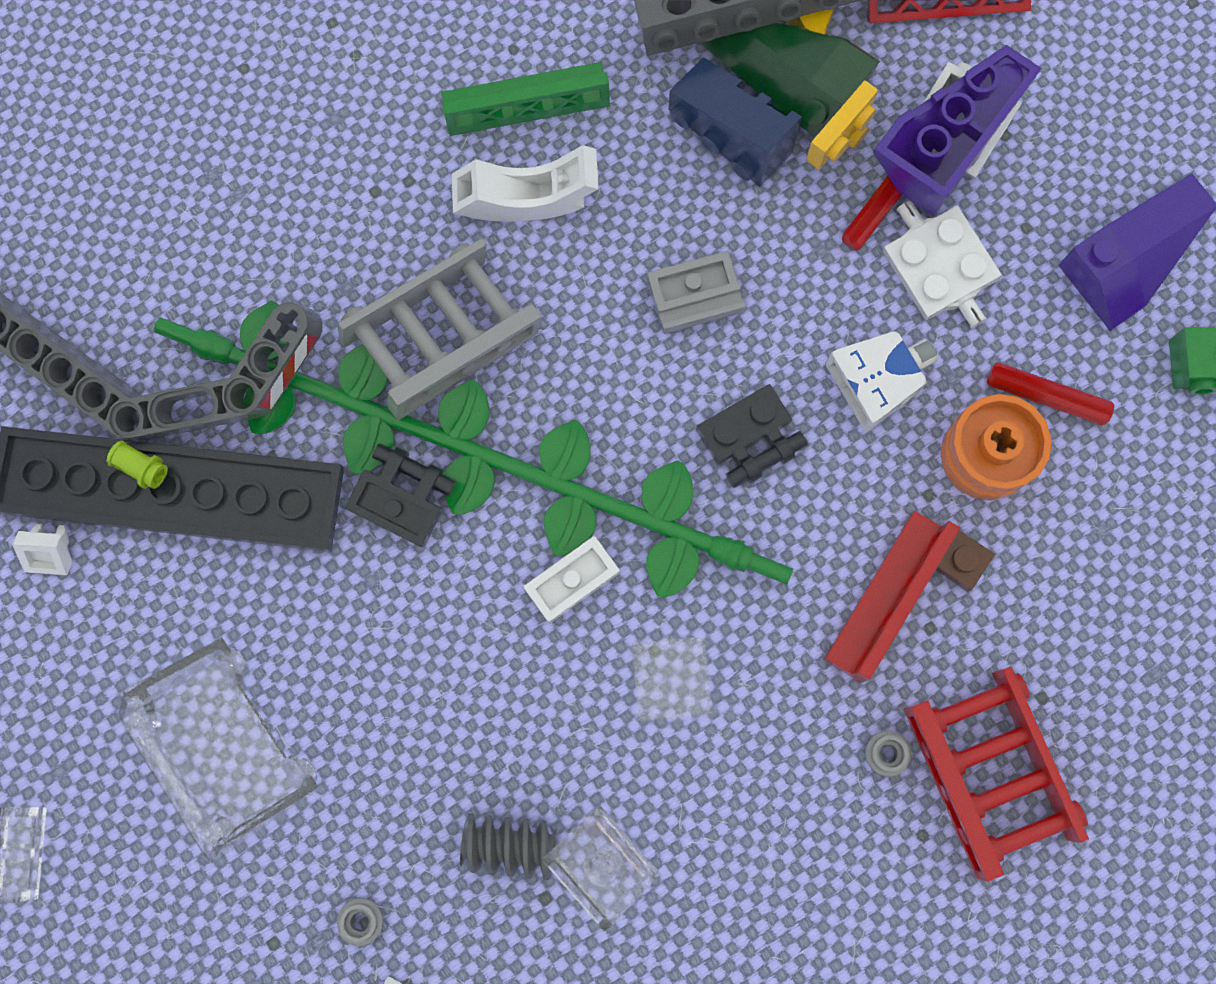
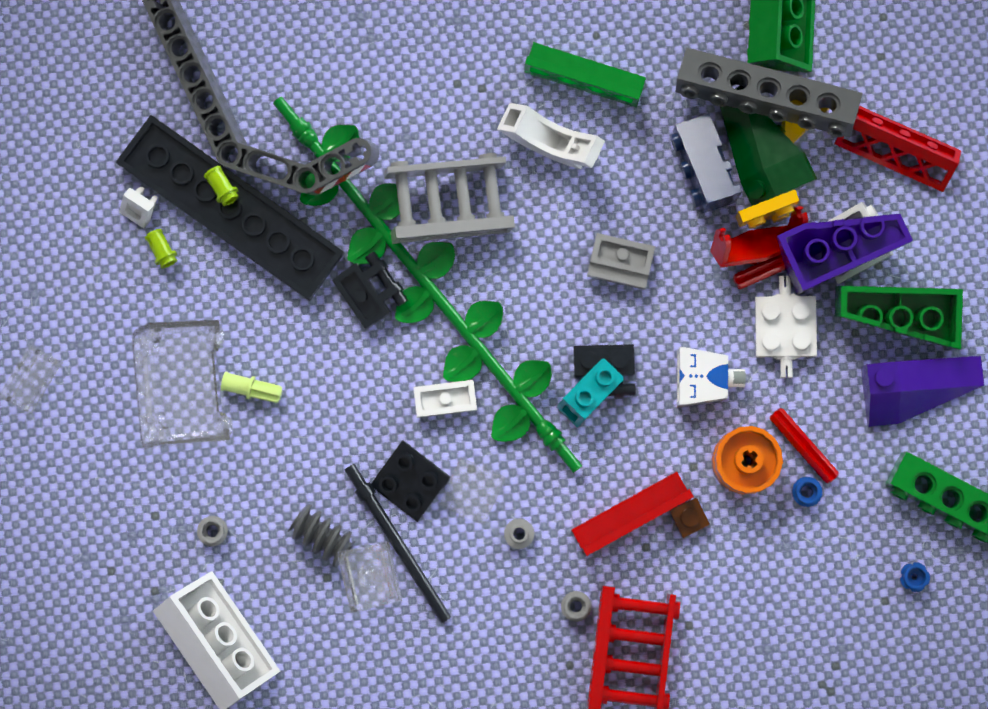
camera: 25 degrees right, 5 degrees up
(110, 594) = (162, 251): none -> lime pin
(312, 703) = (251, 387): none -> yellowish green axle
(536, 758) = (365, 493): none -> black bar
(584, 709) = (410, 480): none -> black hinge
(748, 704) = (512, 541): none -> light grey plate
(751, 472) = (590, 392): none -> teal bracket
(847, 185) = (752, 245): none -> red piece
(1083, 162) = (913, 312): none -> green wedge
(1099, 443) = (816, 489): none -> blue plate

